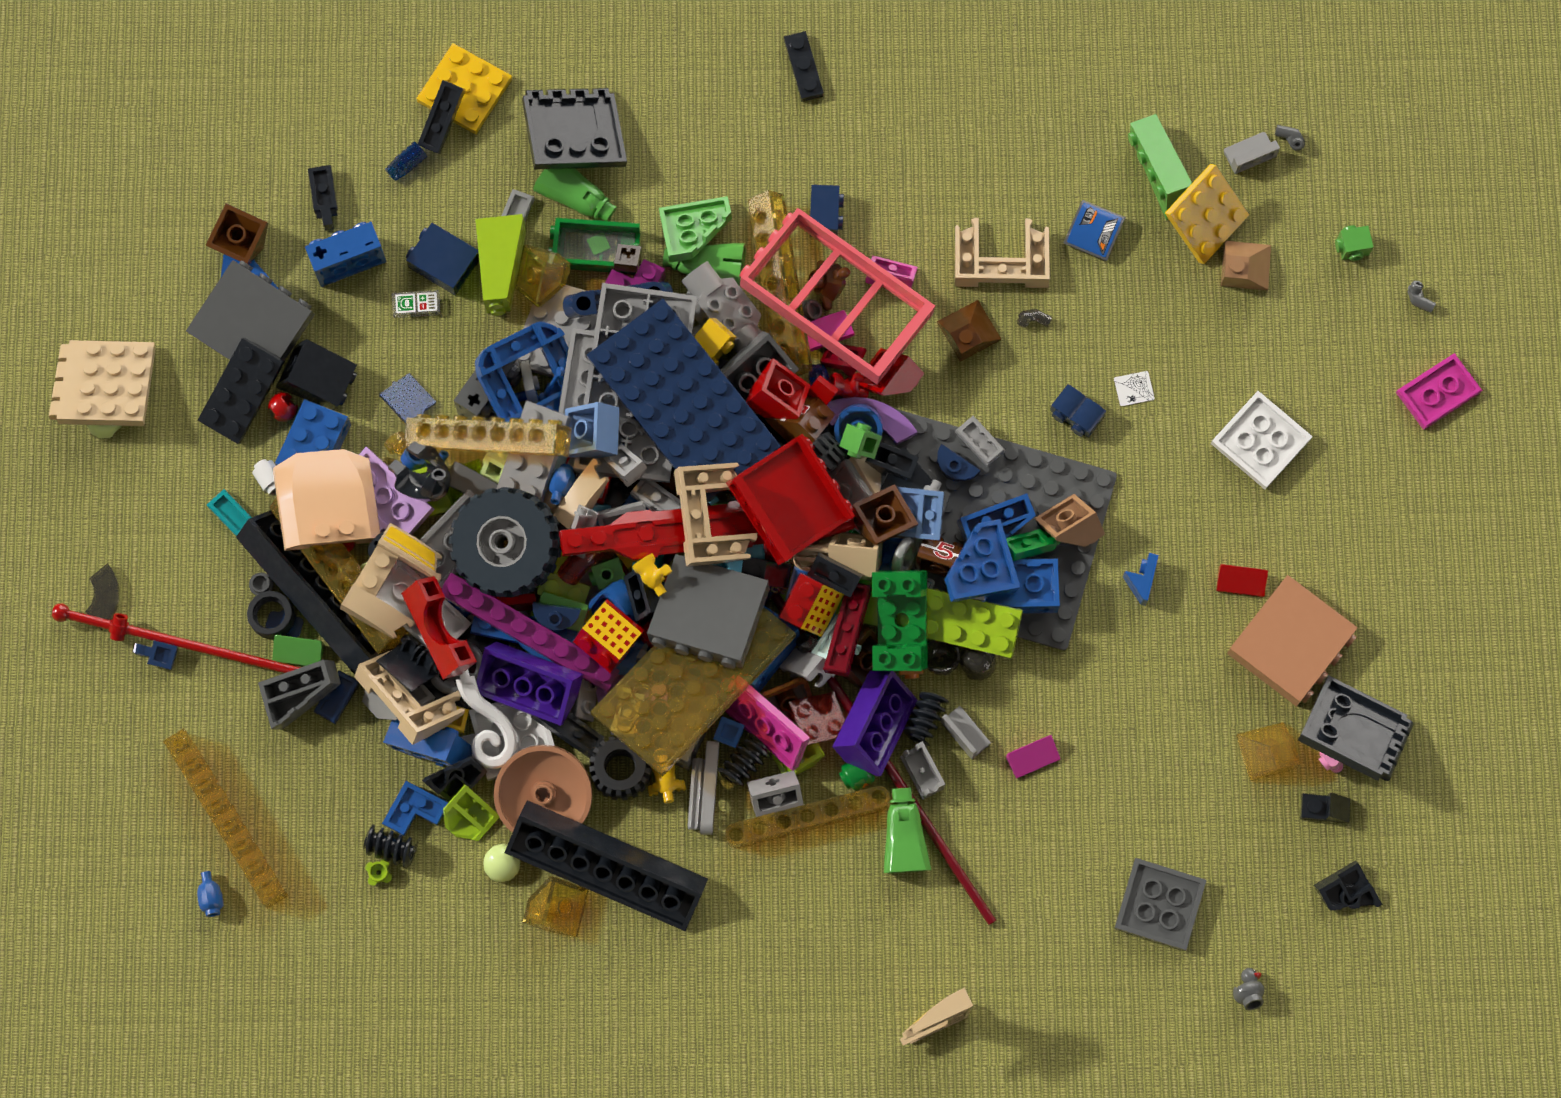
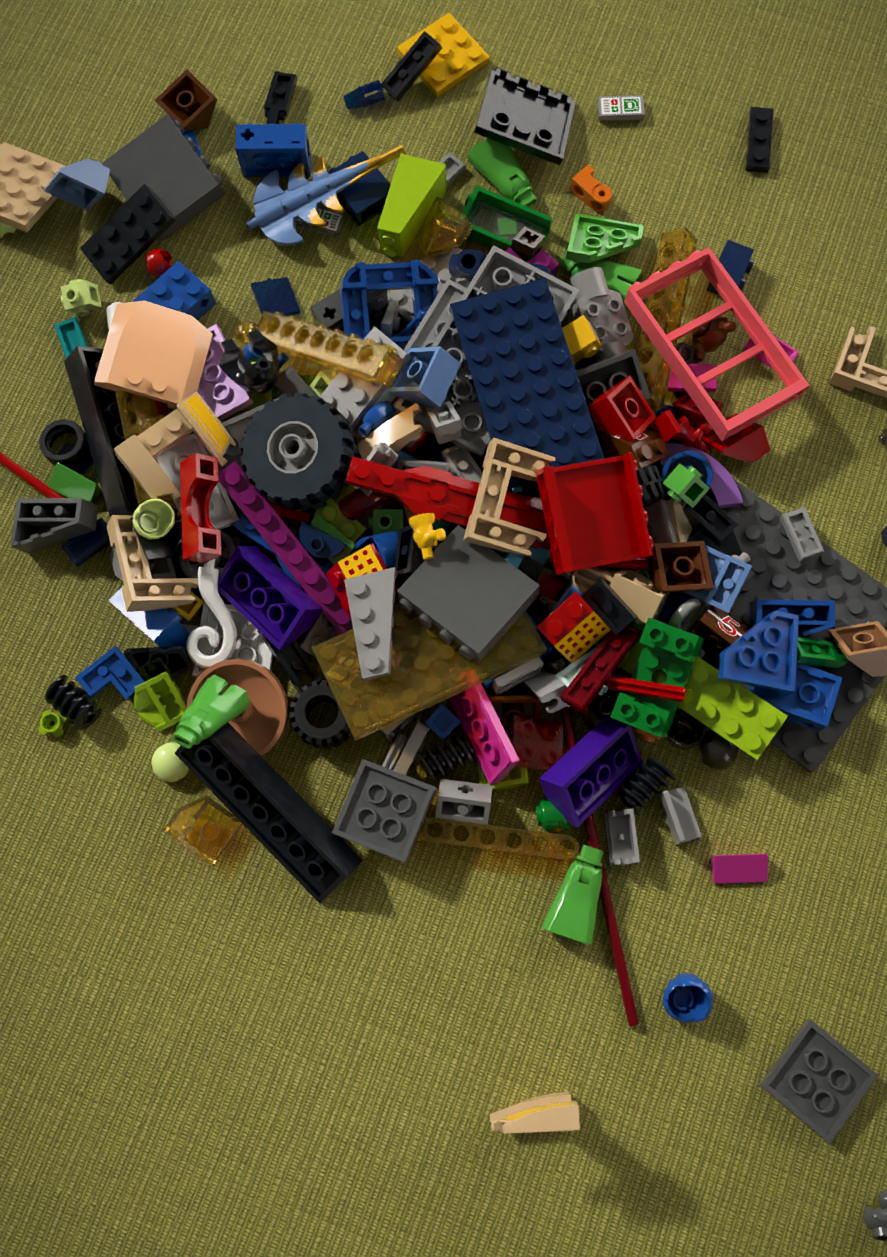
camera: 25 degrees right, 0 degrees up
(176, 358) = (80, 183): none -> medium blue slope
(222, 469) = (80, 297): none -> yellowish green brick
(260, 583) = (68, 411): dark grey plate -> none
(317, 375) = (202, 246): black slope -> none
(375, 310) = (279, 209): none -> medium blue animal
(400, 653) = (153, 519): none -> yellowish green hair
(526, 800) = (210, 711): none -> bright green piece
(632, 660) = (371, 611): none -> light grey wing
(659, 82) = (620, 108): none -> tile
(664, 180) = (590, 190): none -> orange leg
(666, 785) = (362, 749): yellow piece -> none
(710, 827) = (384, 810): none -> dark grey plate
(778, 666) = (516, 676): none -> light grey tile
(894, 633) = (647, 688): none -> red axle
(954, 466) = (767, 549): dark blue plate -> none
(969, 330) = (827, 428): reddish brown slope -> none
(1027, 881) = (687, 998): none -> blue hair

